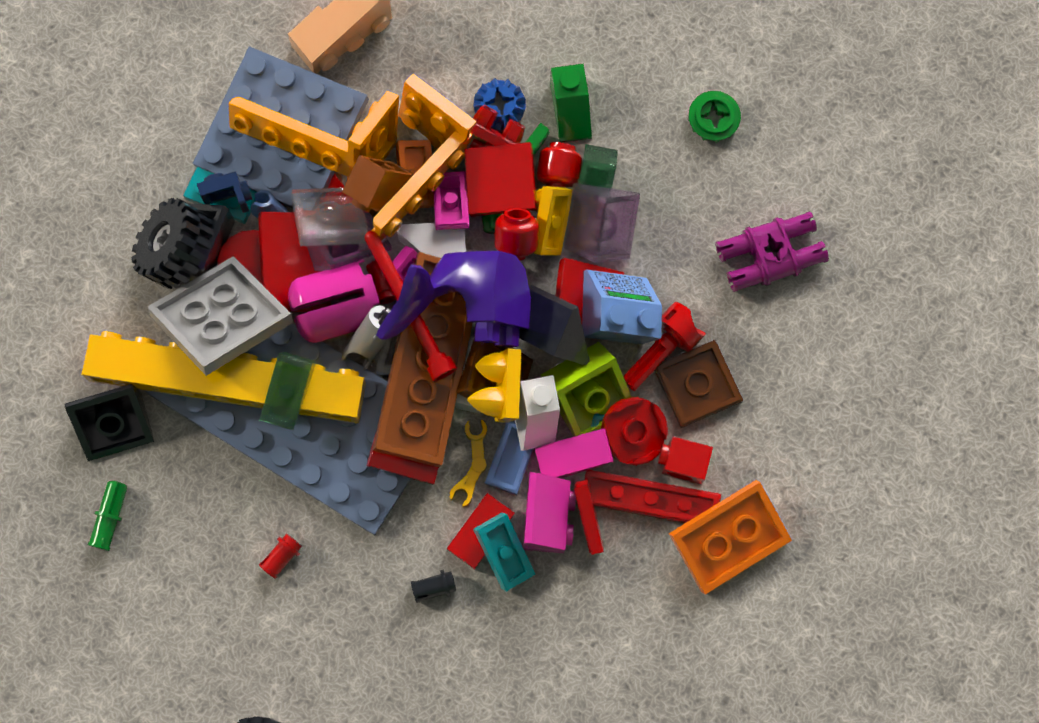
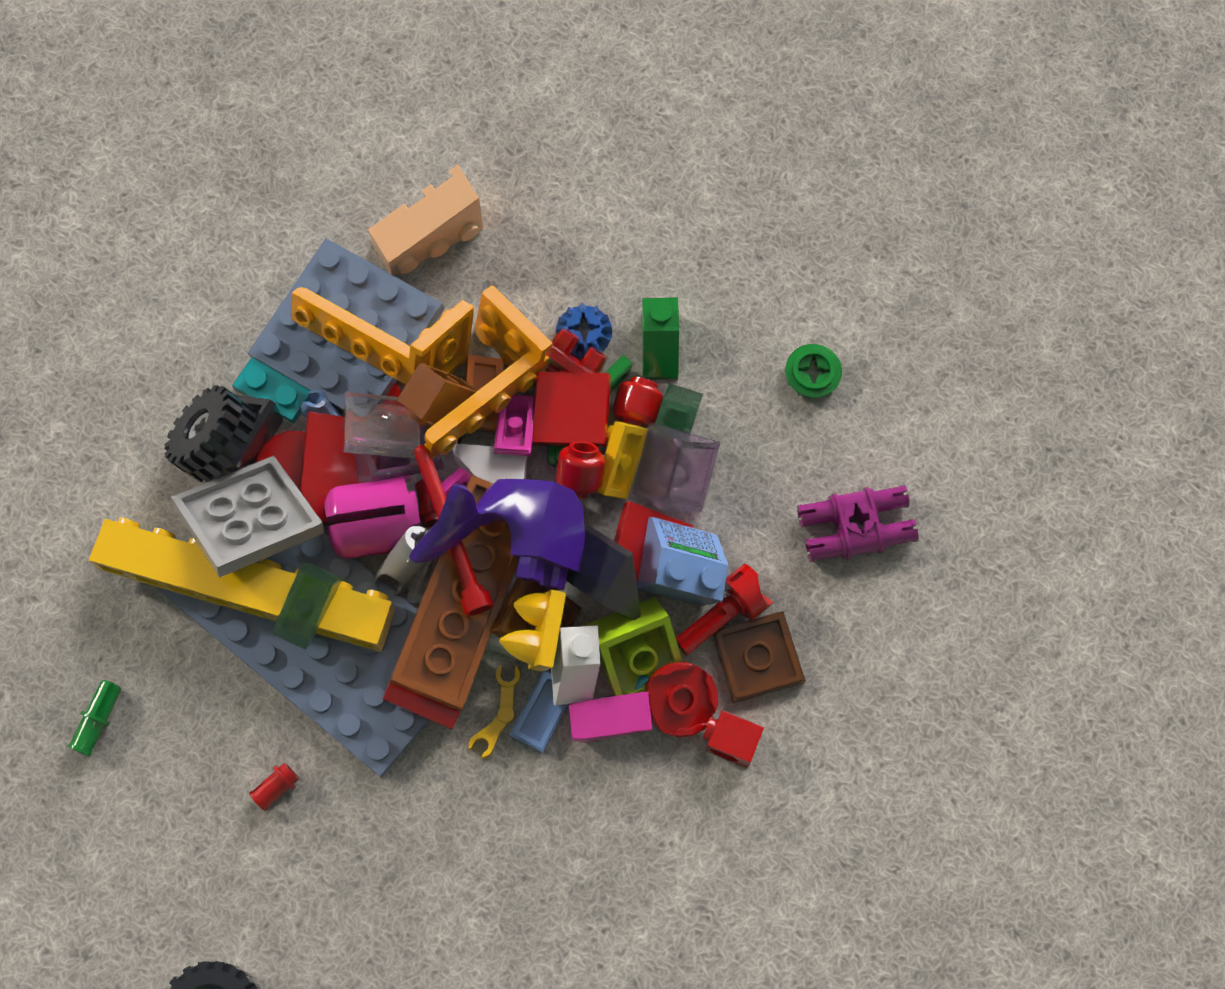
camera: 10 degrees right, 5 degrees down
(110, 422) = (114, 616): black slope -> none
(222, 187) = (273, 380): dark blue bracket -> none
(433, 586) = (436, 842): black pin -> none
(465, 544) = (497, 788): red tile -> none
(504, 551) = (519, 813): teal plate -> none
(547, 514) = (572, 777): dark pink slope -> none
(588, 517) = (617, 787): red tile -> none
(648, 497) = (689, 776): red tile -> none
(730, 537) = (771, 830): orange plate -> none

